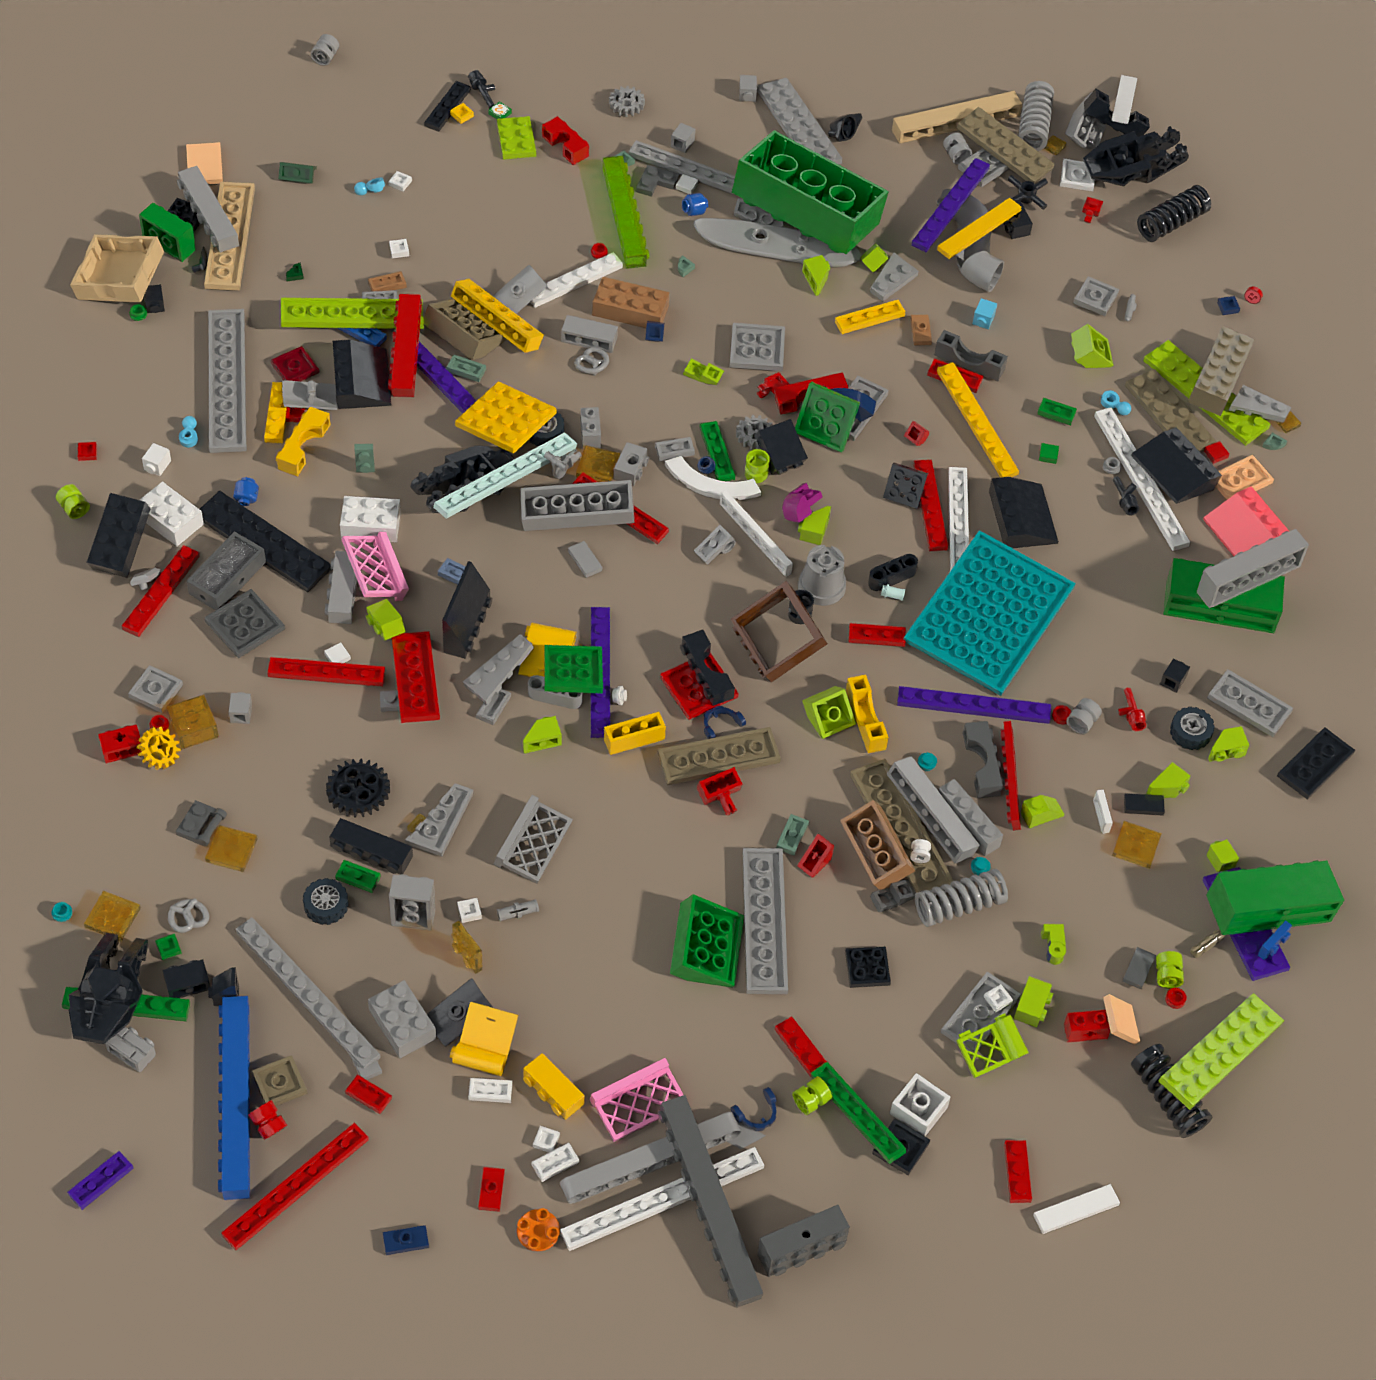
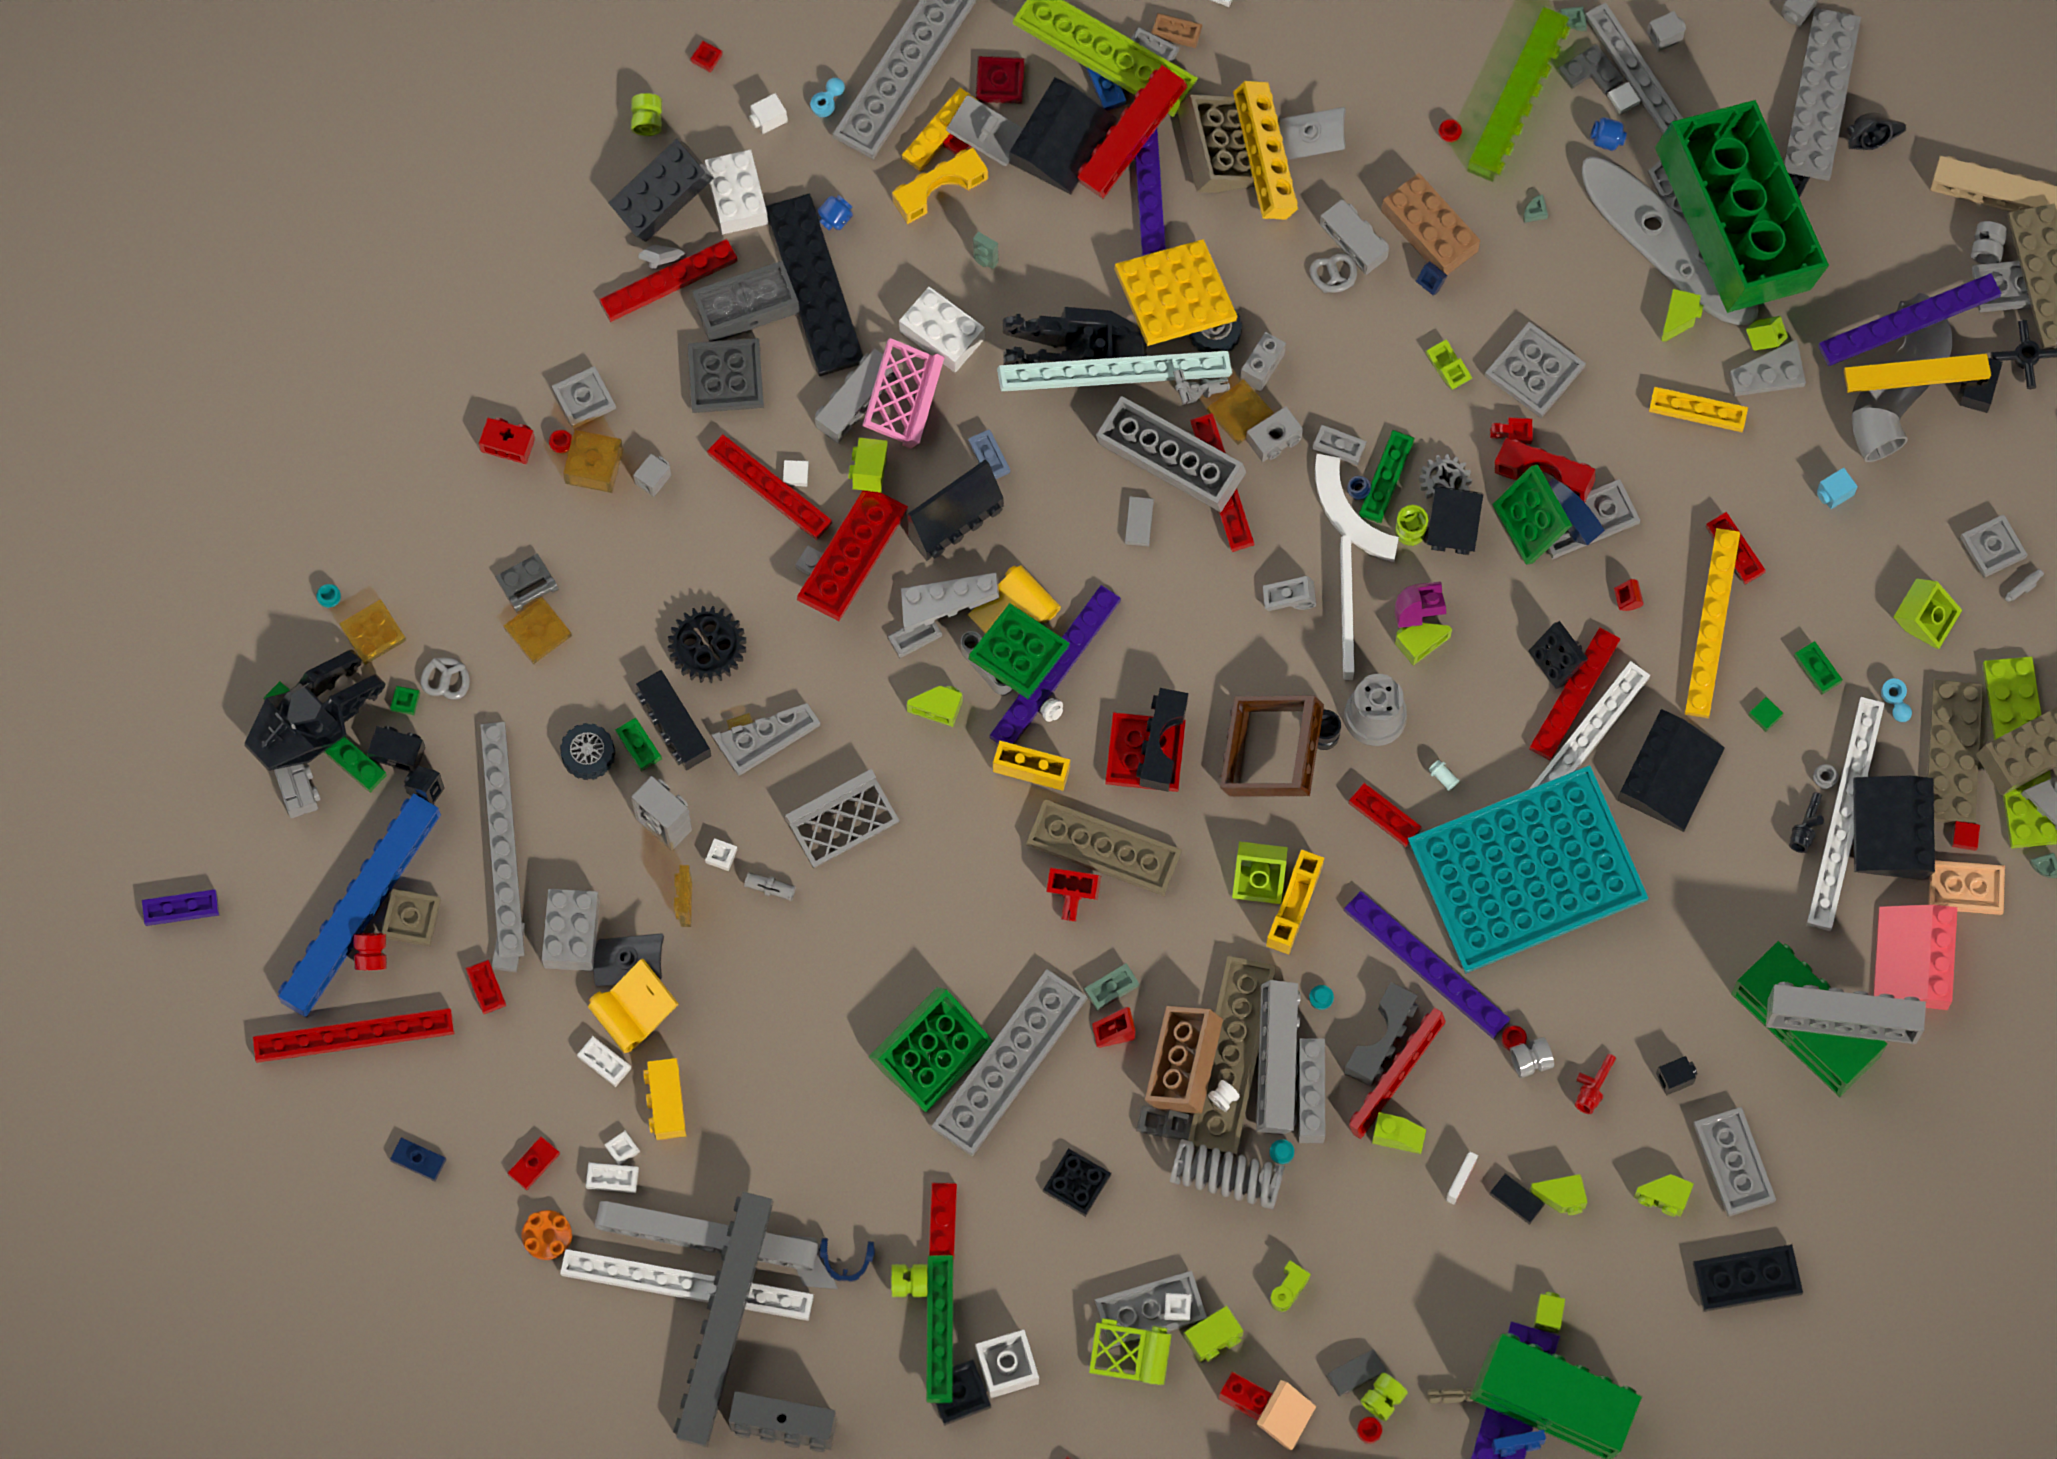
camera: 40 degrees right, 15 degrees up
(161, 740) = (538, 480): yellow gear -> none
(466, 368) = (1184, 198): sand green plate -> none
(578, 278) = (1399, 152): white plate -> none
(625, 1086) = (740, 1147): bright pink fence -> none
(737, 716) = (1138, 792): dark blue piece -> none
(893, 572) = (1473, 746): black beam -> none
(921, 330) = (1746, 462): medium nougat plate -> none
(953, 350) = (1759, 517): dark grey arch -> none
(1136, 844) = (1470, 1238): clear yellow plate -> none
(1183, 731) = (1643, 1148): black wheel -> none

